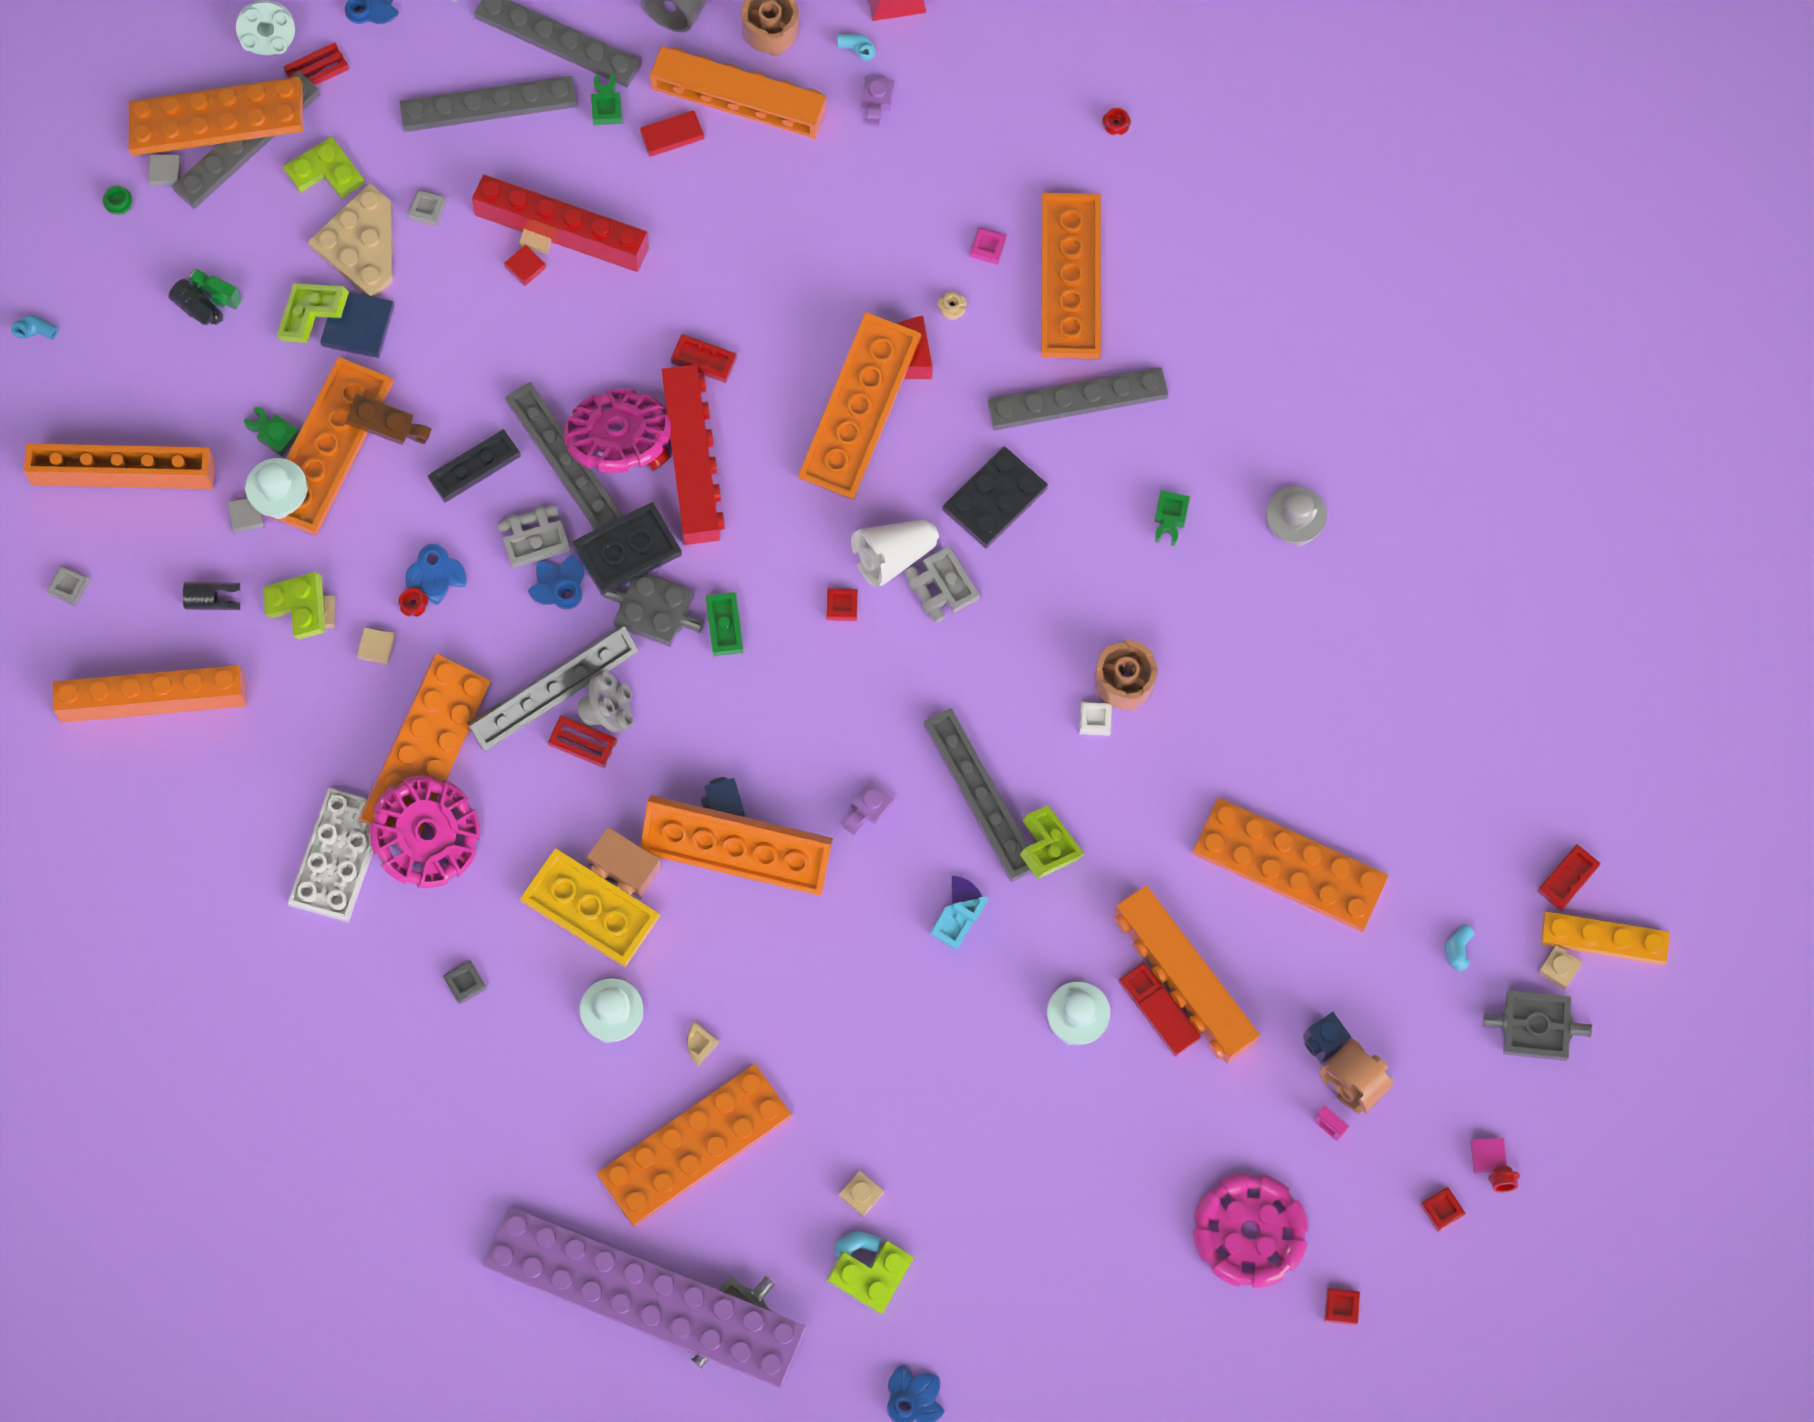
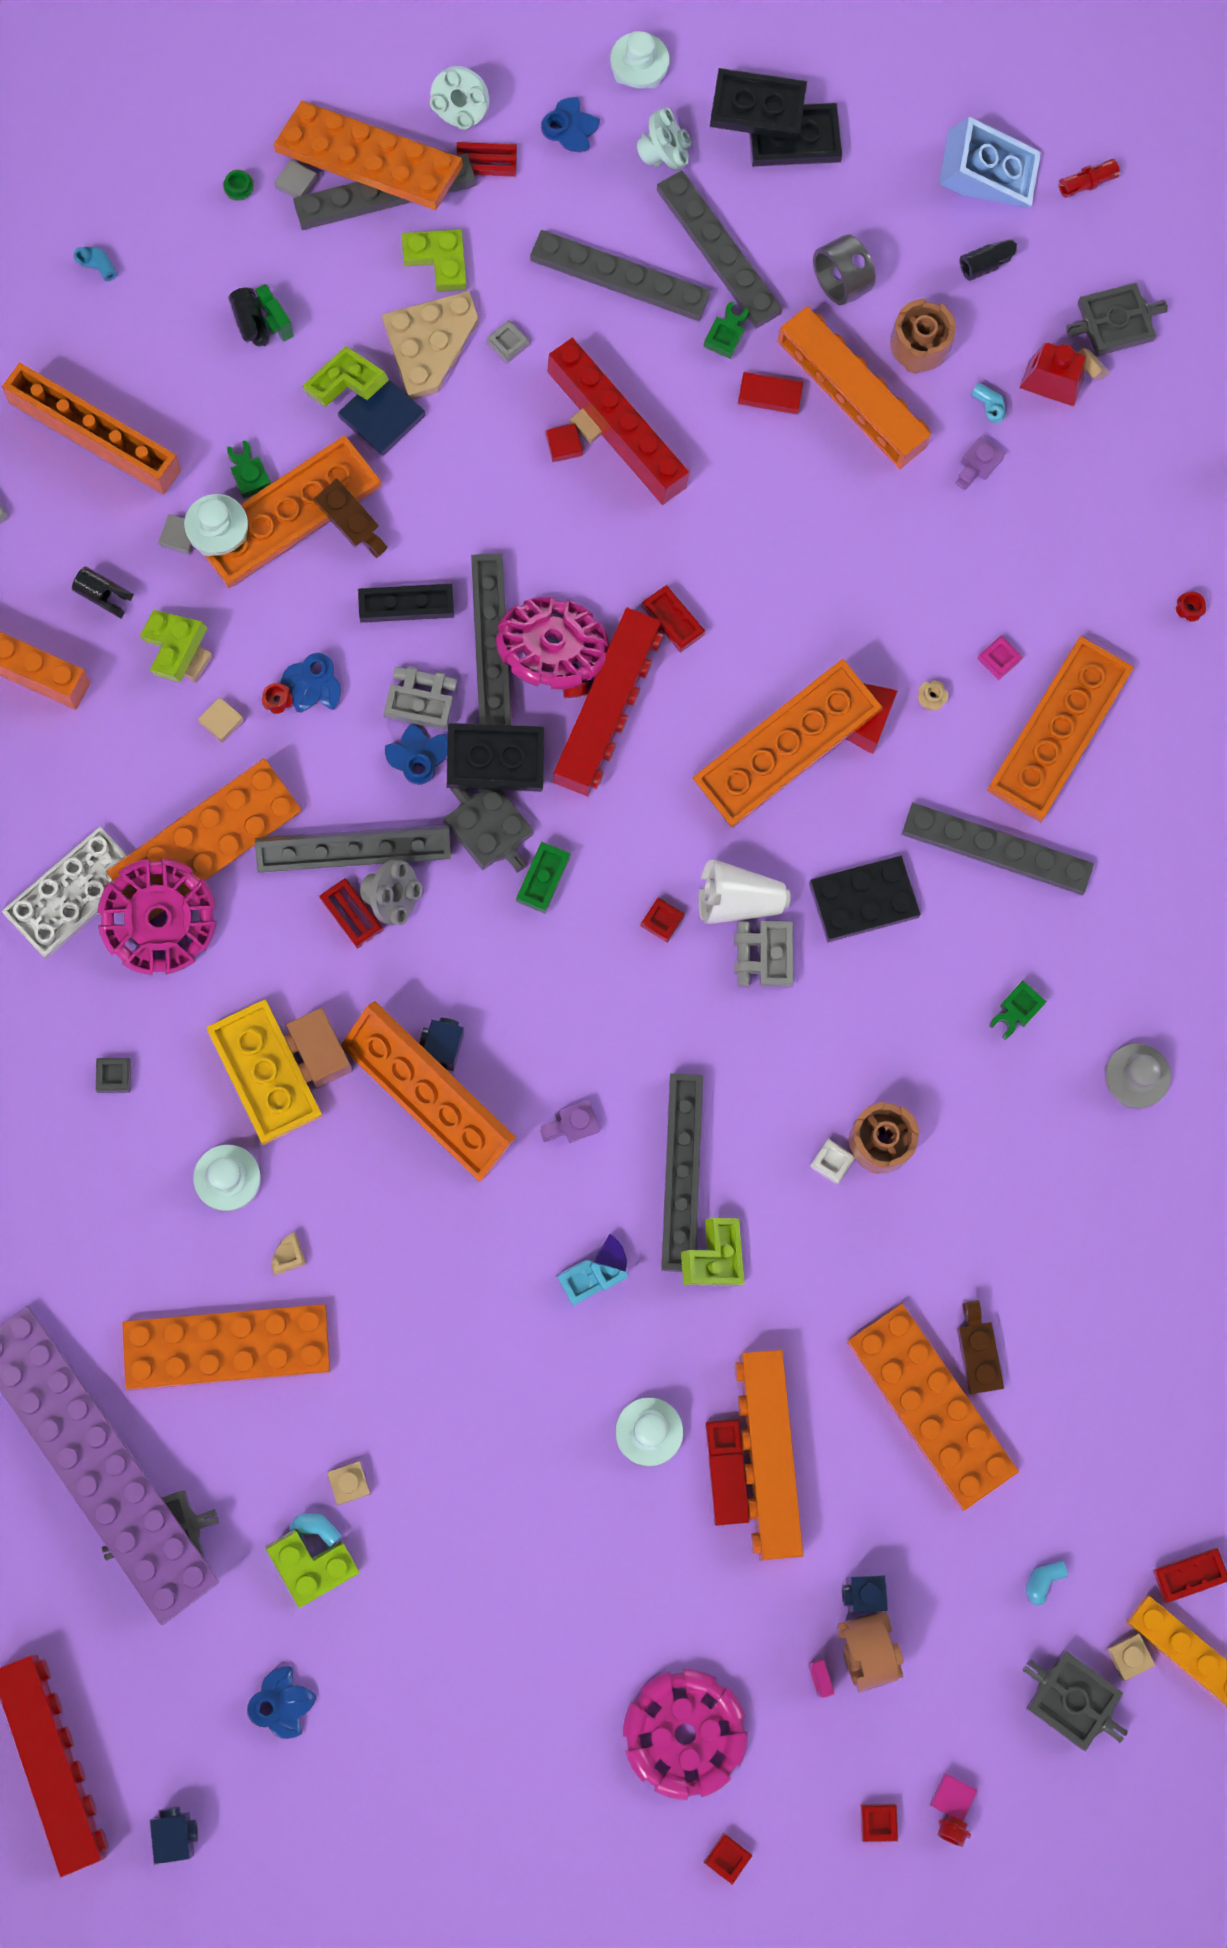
camera: 25 degrees right, 5 degrees up
(1301, 800) = (979, 1351): none -> reddish brown plate

